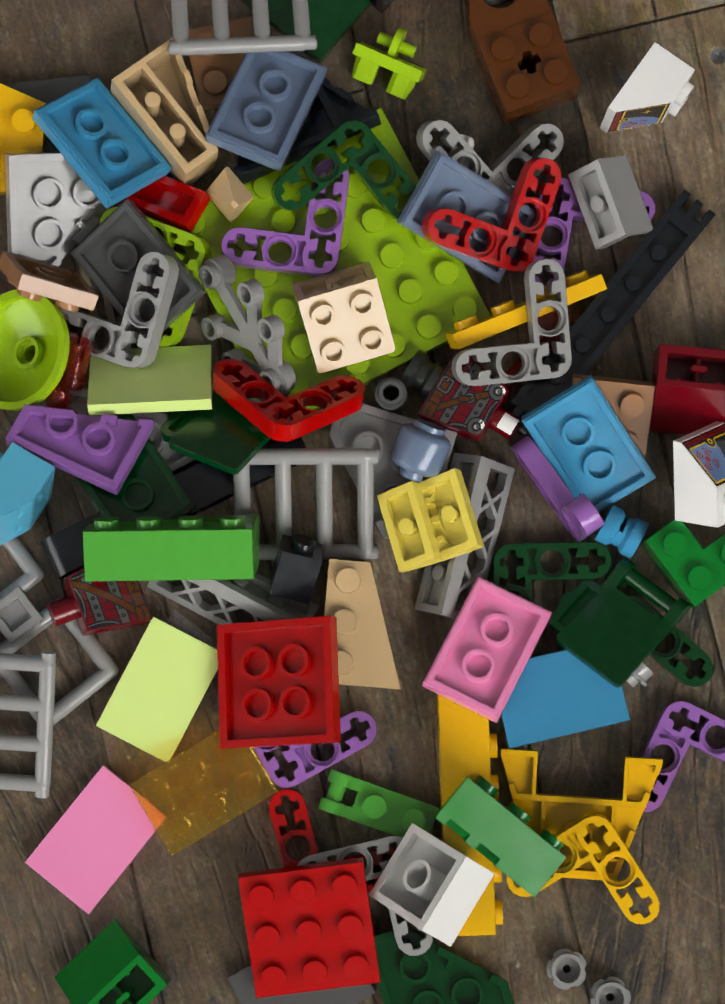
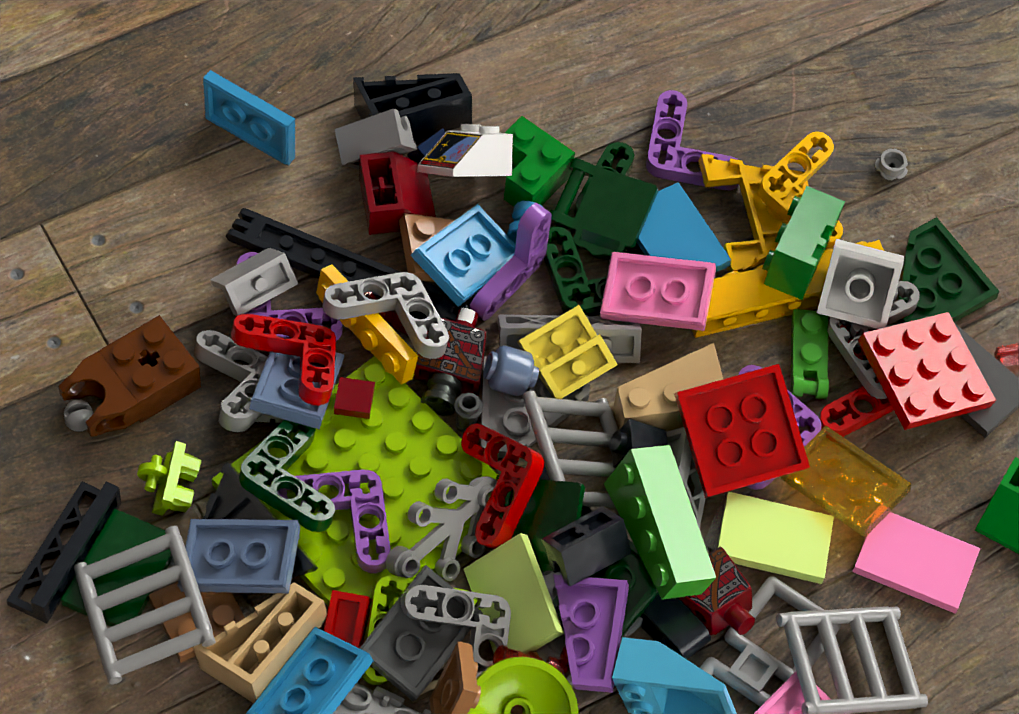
camera: 110 degrees left, 25 degrees down
(168, 458) = (587, 545): none -> black hinge
(229, 194) = (330, 568): tan slope -> none
(344, 317) = (407, 454): tan bracket -> none
(433, 274) = (354, 398): none -> dark red tile
(574, 977) = (885, 191): light grey plate -> none
(651, 92) = (151, 268): white slope -> none

